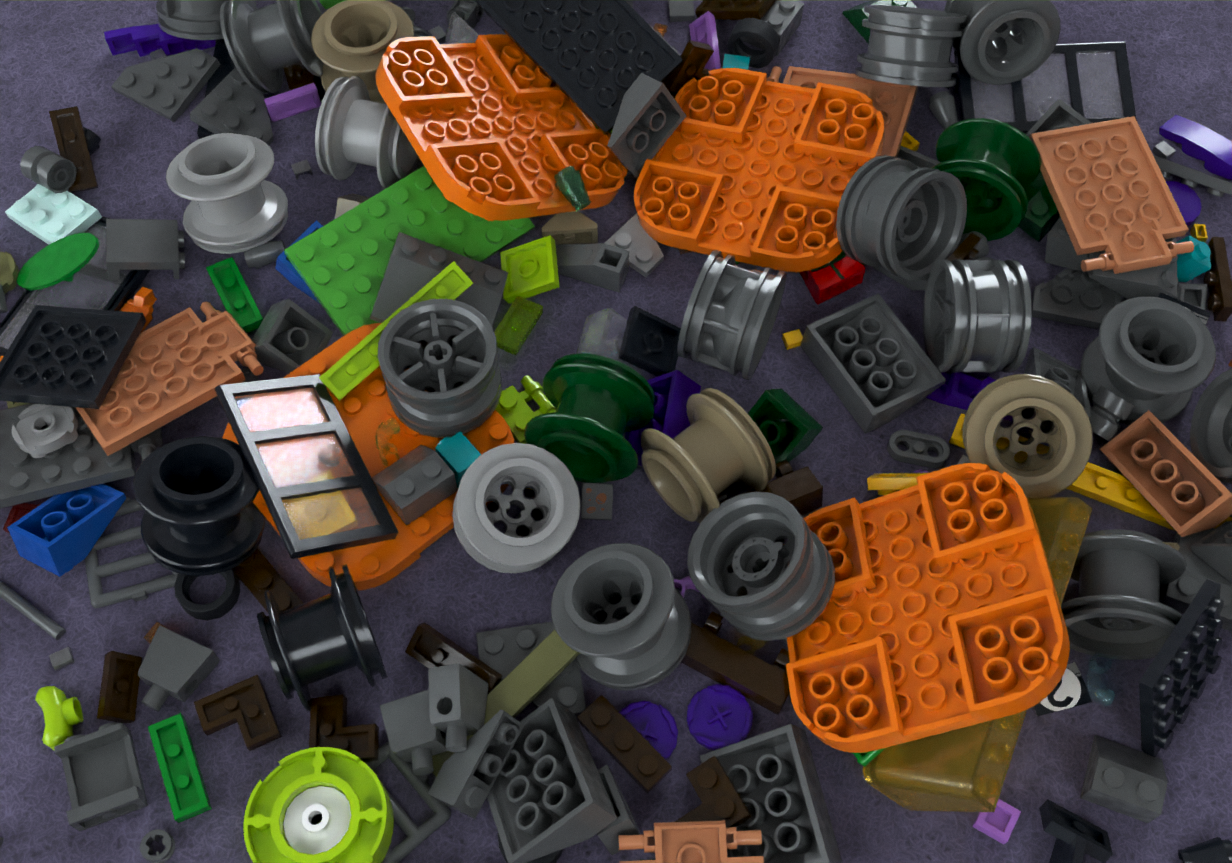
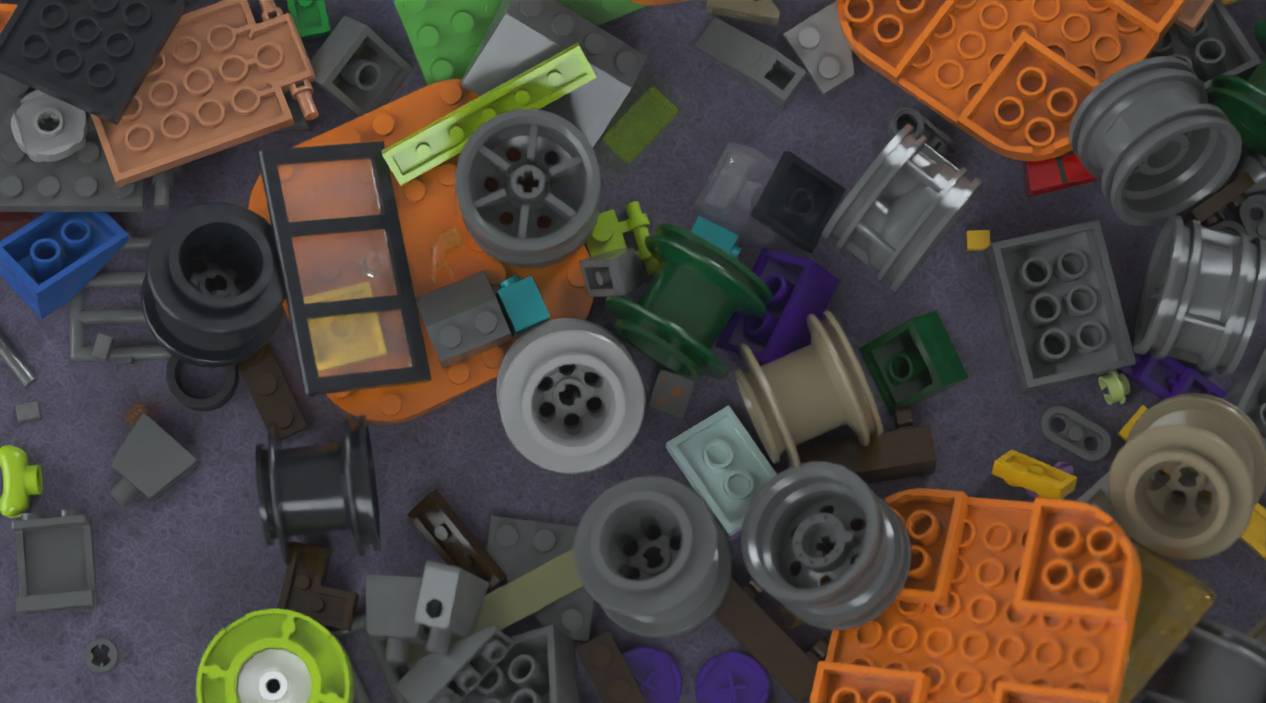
camera: 15 degrees right, 20 degrees up
(117, 586) = (103, 347): none -> flat silver piece
(119, 687) = (88, 467): dark brown plate -> none
(179, 768) = (138, 577): green plate -> none
(243, 704) = (221, 526): dark brown plate -> none
(518, 414) = (612, 273): none -> dark grey slope
(530, 269) = (678, 51): lime plate -> none
(659, 532) = (722, 466): none -> light aqua plate
(936, 406) = (1117, 386): none -> yellowish green plate

